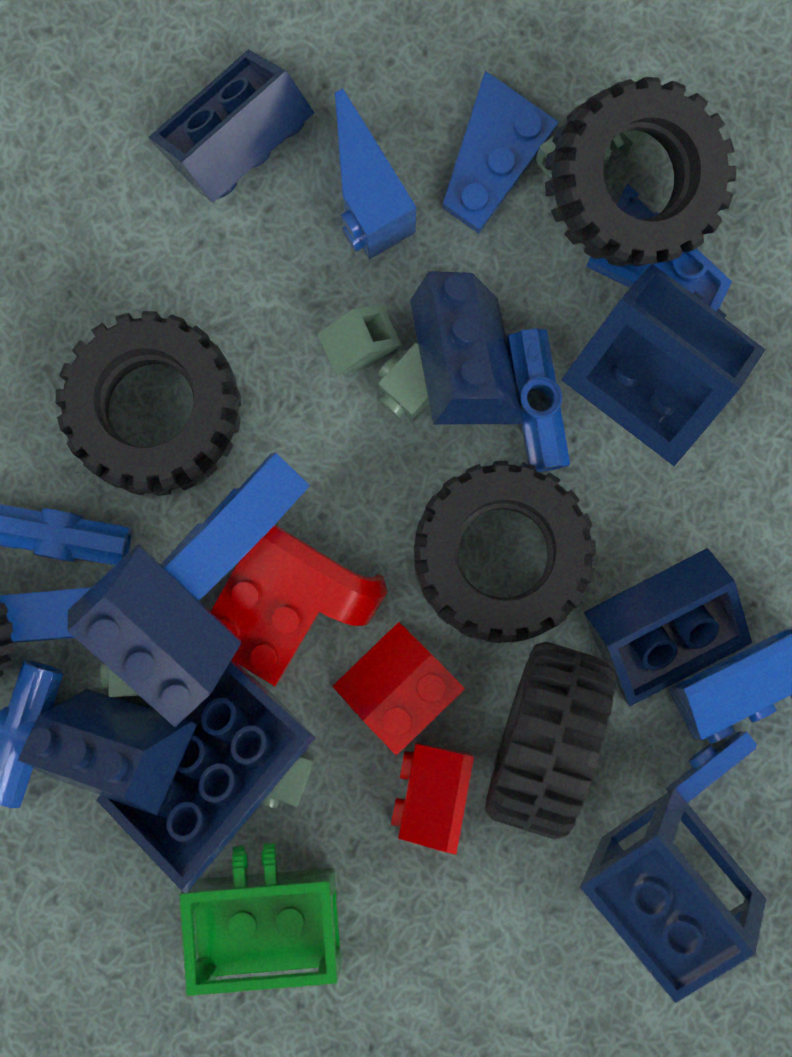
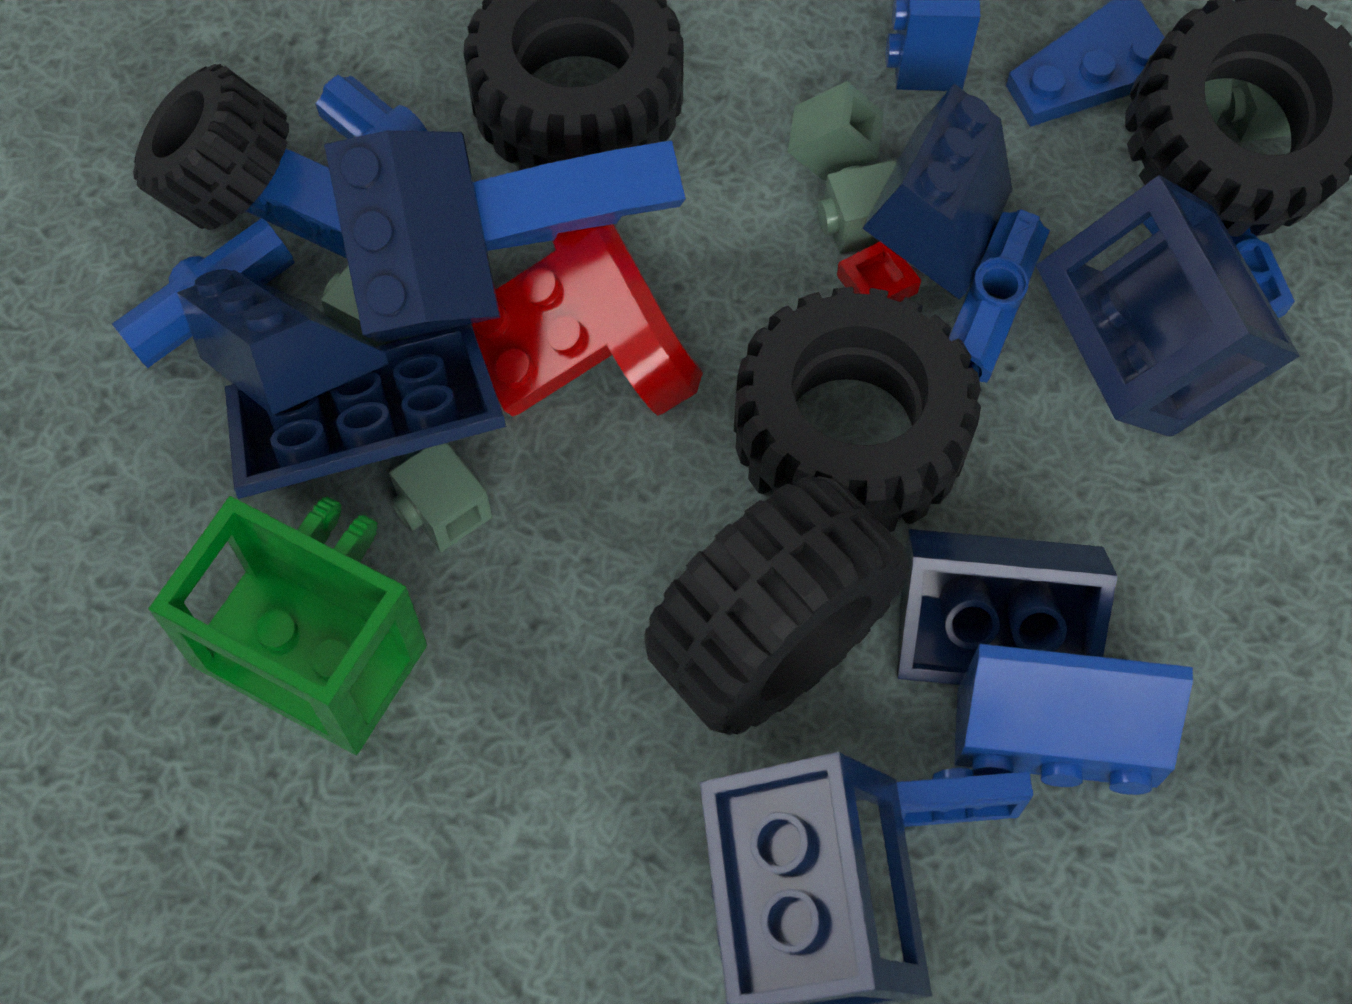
camera: 30 degrees right, 20 degrees down
(398, 688) = (641, 497): red slope -> none
(434, 796) = (597, 620): red slope -> none
(452, 440) = (879, 269): none -> red plate

